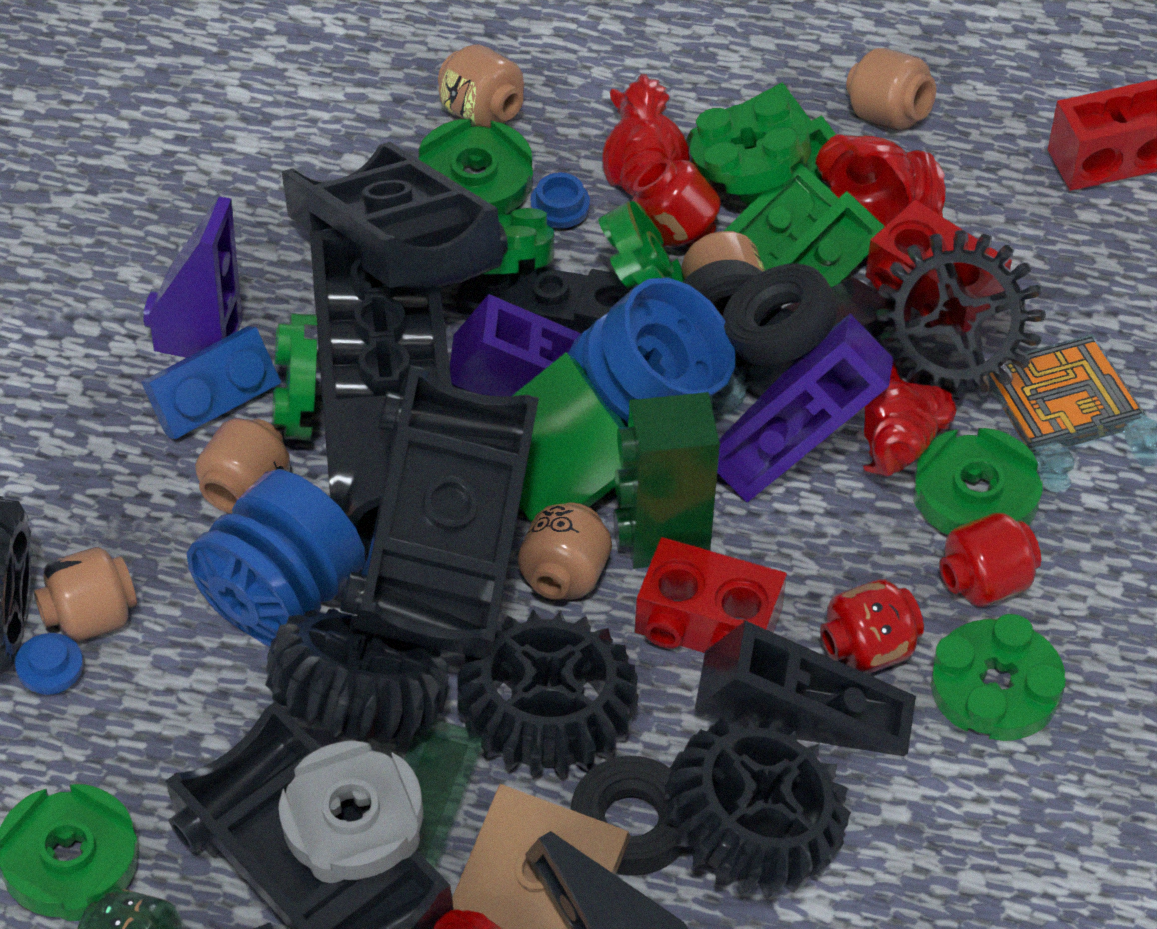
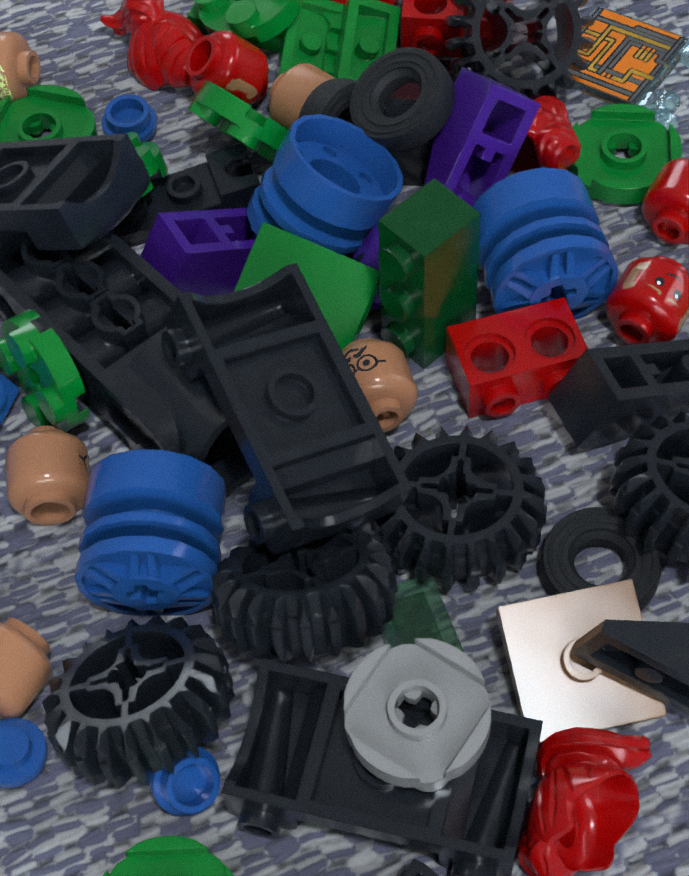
camera: 30 degrees left, 5 degrees up
(154, 759) = (190, 787): none -> blue plate
(165, 678) = (138, 701): none -> black gear
(807, 515) = (543, 243): none -> blue wheel

